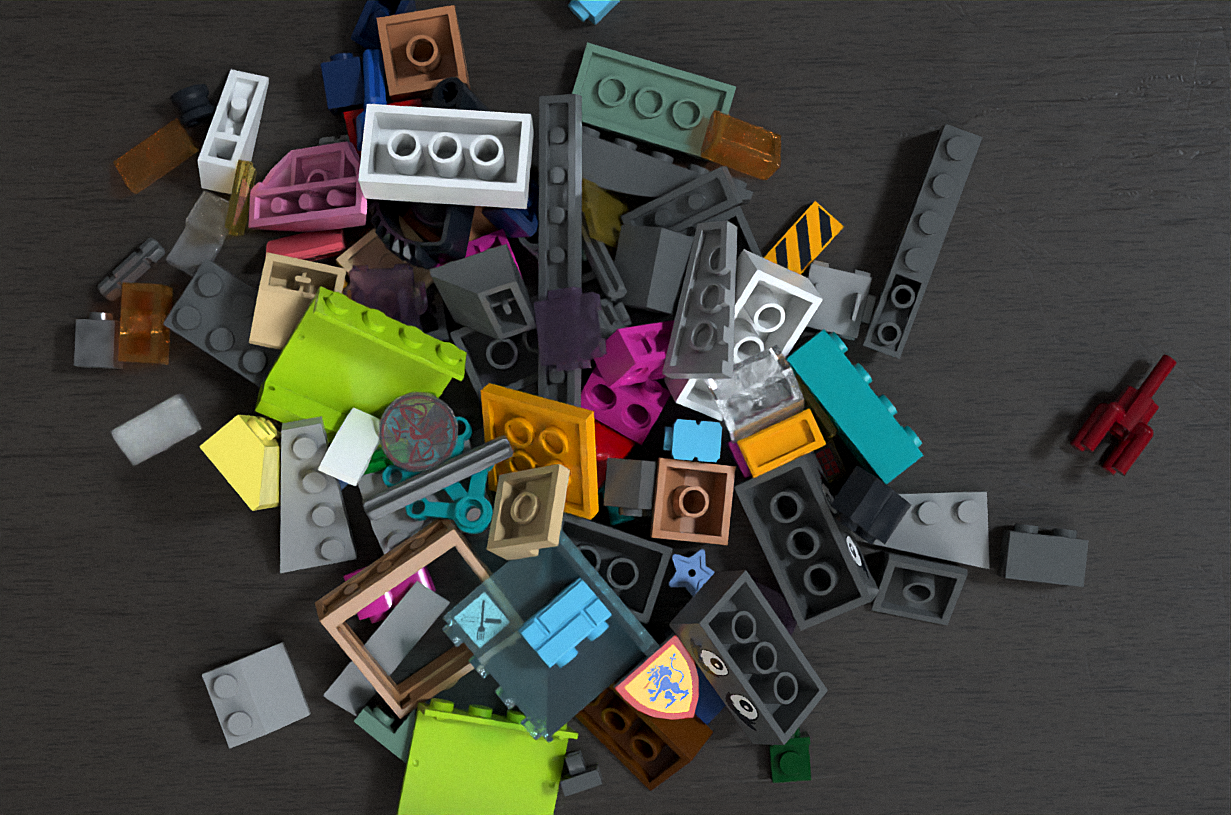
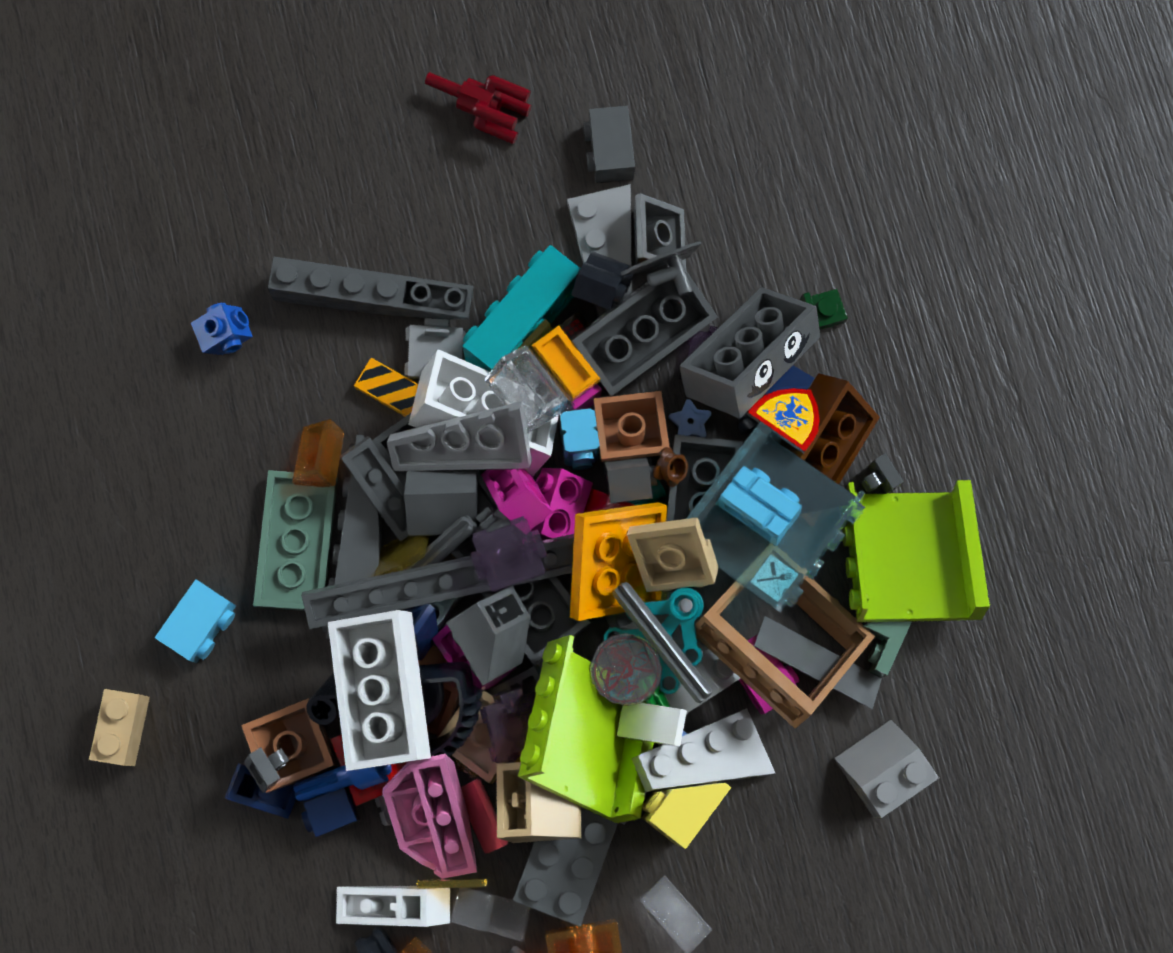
camera: 115 degrees left, 10 degrees down
(399, 20) = (265, 768): none -> dark grey tile
(633, 534) = (670, 467): none -> reddish brown plate
(858, 590) = (673, 272): none -> dark grey shield
(910, 64) = (222, 329): none -> blue brick

